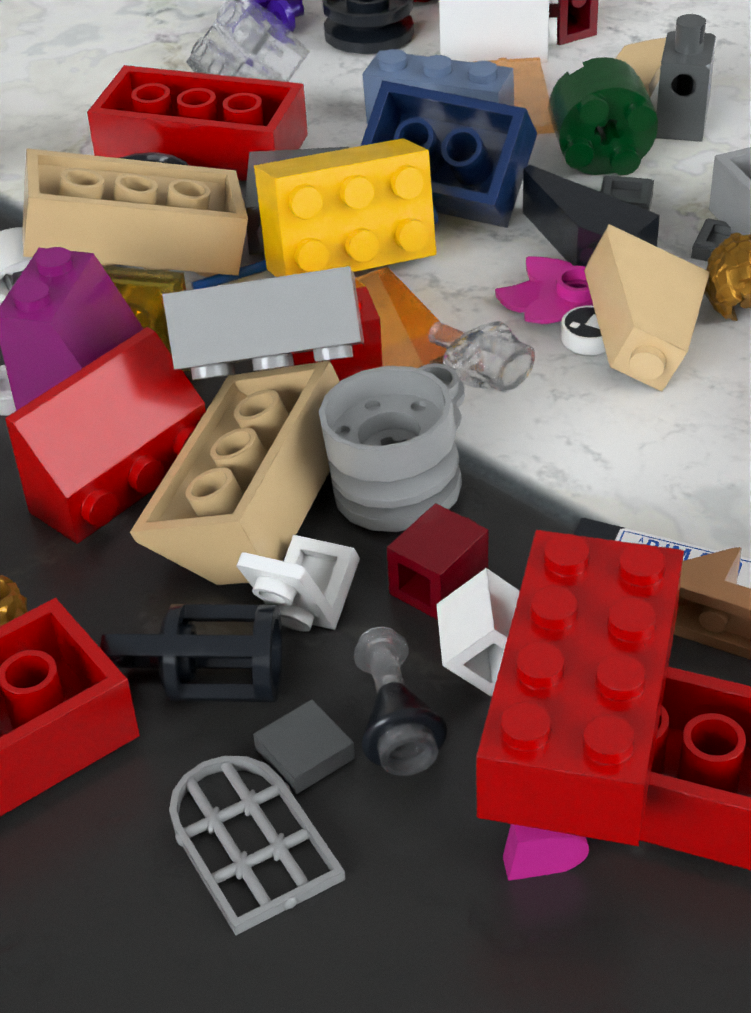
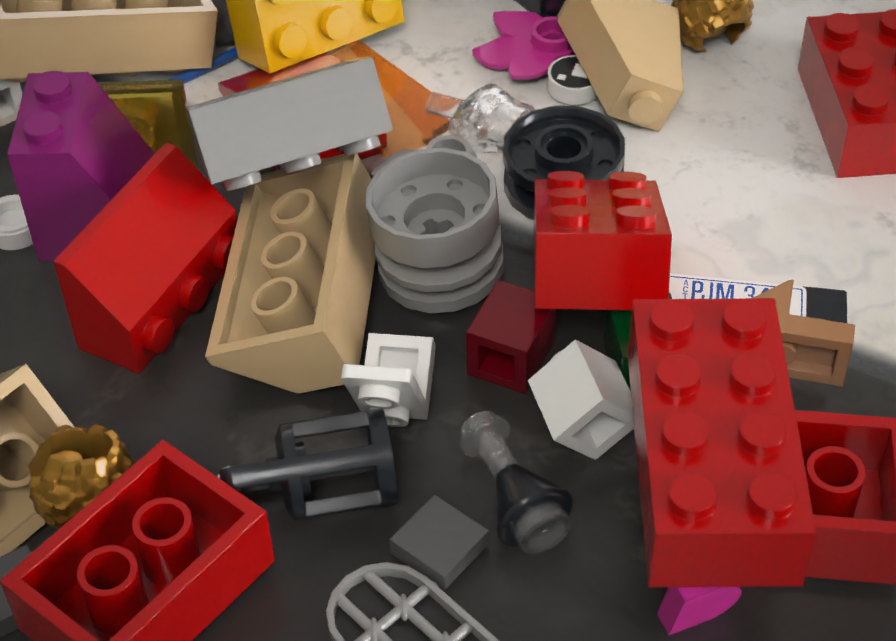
camera: 15 degrees left, 5 degrees up
(541, 477) = (599, 241): none -> red brick
(547, 408) = (558, 141): none -> black wheel

